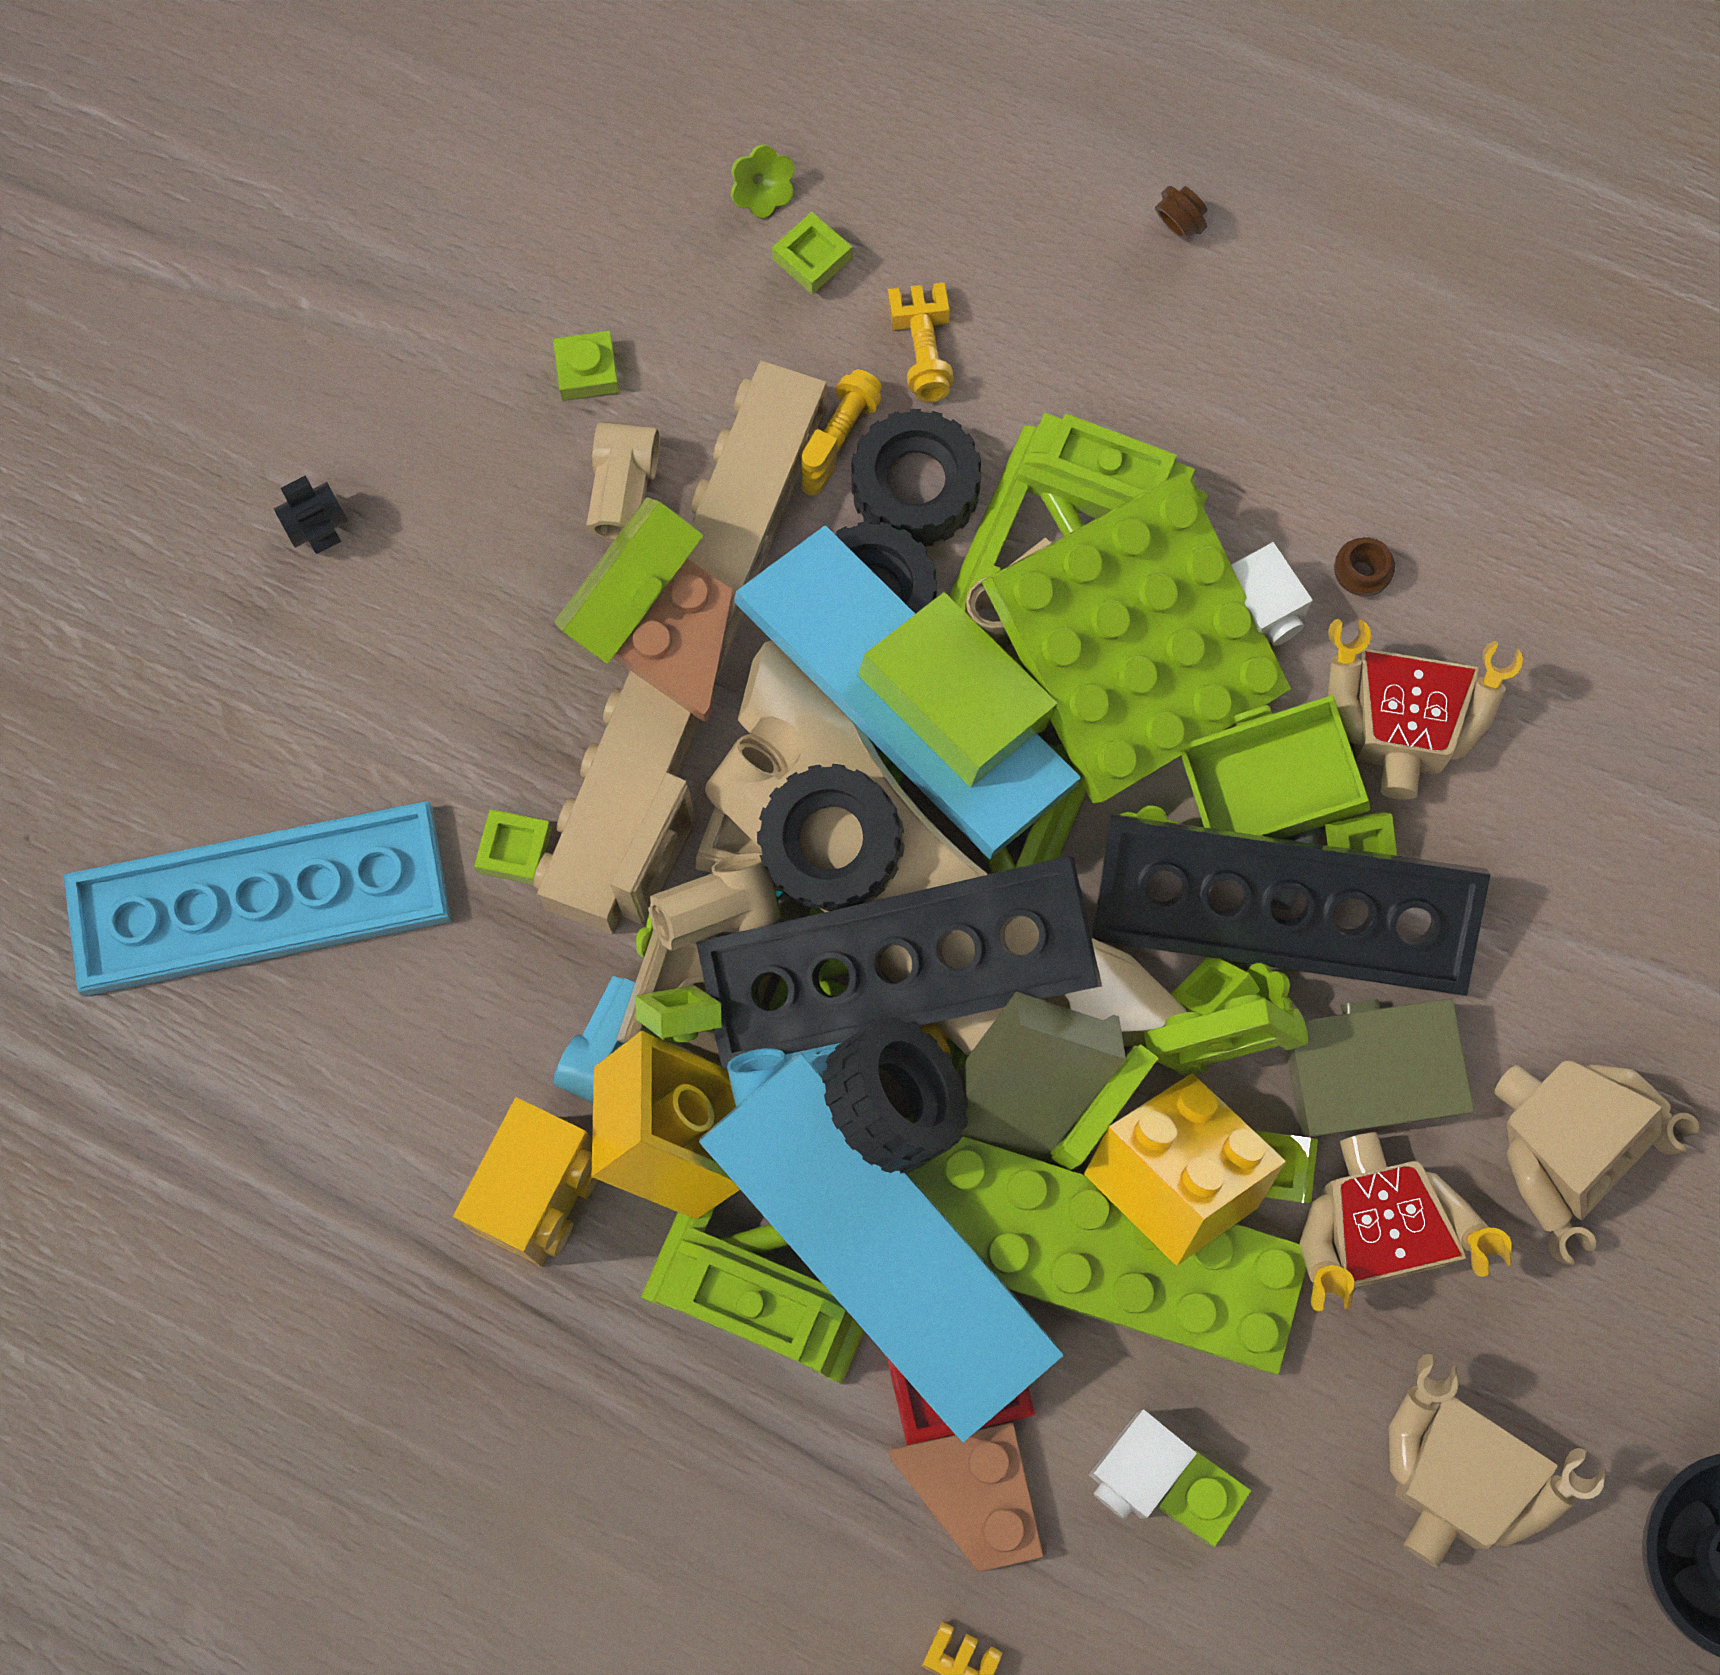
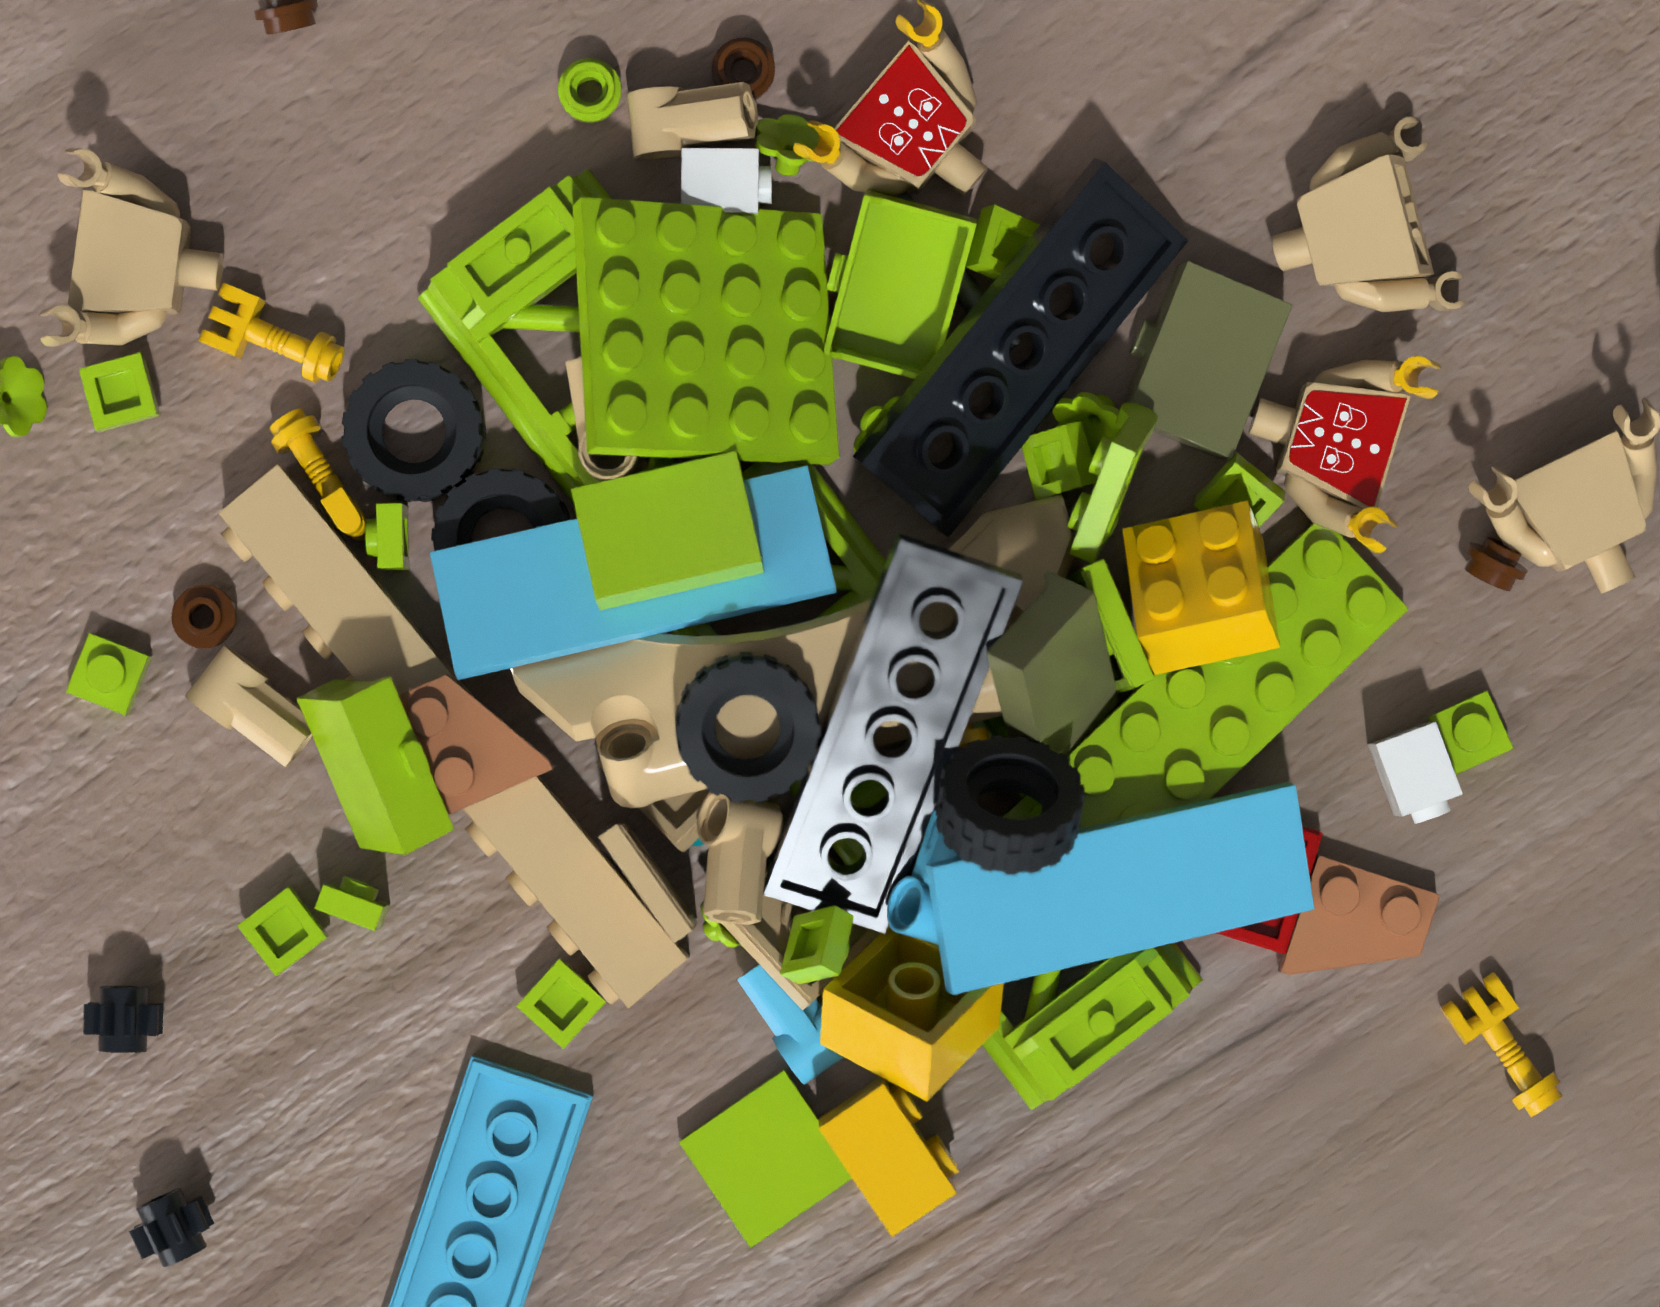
camera: 65 degrees left, 15 degrees up
(156, 642) = (171, 1227): none -> black gear
(451, 598) = (283, 931): none -> lime plate
(467, 1087) = (765, 1158): none -> lime tile
(504, 637) = (353, 902): none -> lime plate
(675, 421) = (223, 622): none -> reddish brown plate
(820, 504) = (389, 537): none -> lime plate
(918, 201) = (127, 258): none -> tan torso
(1273, 447) = (589, 70): none -> lime plate
(1306, 545) = (676, 118): none -> tan piece
(1318, 640) = (778, 138): none -> lime plant
(1367, 1429) = (1495, 564): none -> reddish brown plate

